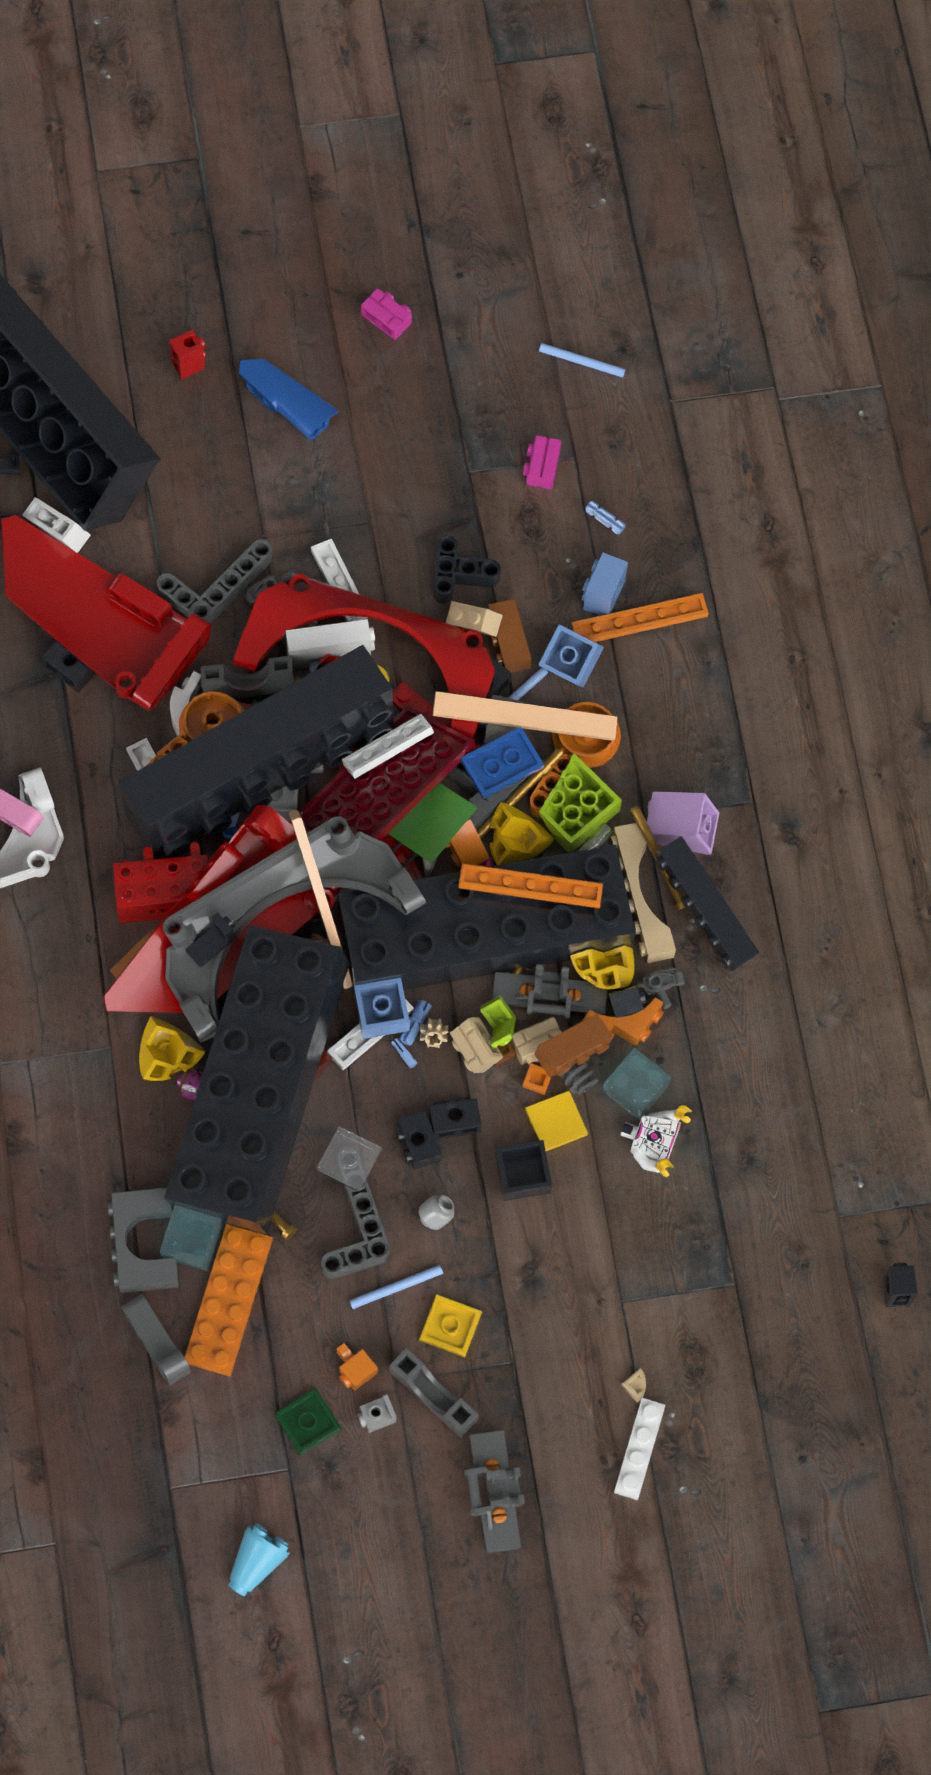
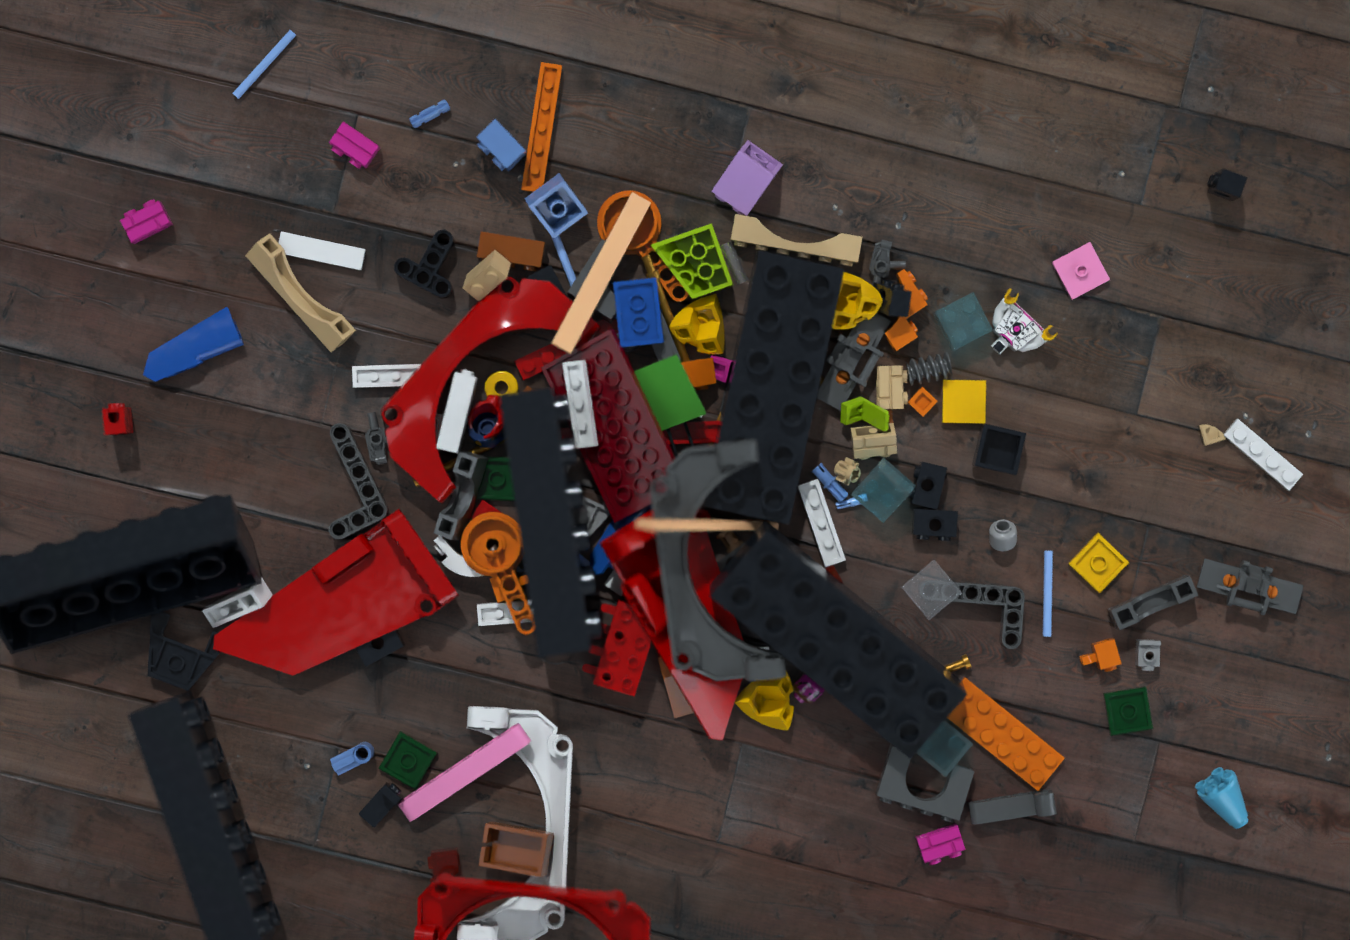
camera: 60 degrees left, 20 degrees up
(86, 1282) = (940, 843): none -> dark pink brick
(212, 941) = (705, 631): black bracket -> none
(361, 498) = (272, 263): none -> tan arch
(381, 1008) = (814, 508): medium blue brick -> none
(429, 473) = (322, 251): none -> white tile
(430, 1071) = (883, 490): none -> clear light blue piece
(530, 885) = (771, 342): orange tile -> none
(573, 1046) = (917, 363): dark orange brick -> none
(653, 846) = (818, 210): pearl gold bar -> none
(706, 904) = (833, 192): black brick -> none
(742, 1182) = (1080, 270): none -> bright pink plate

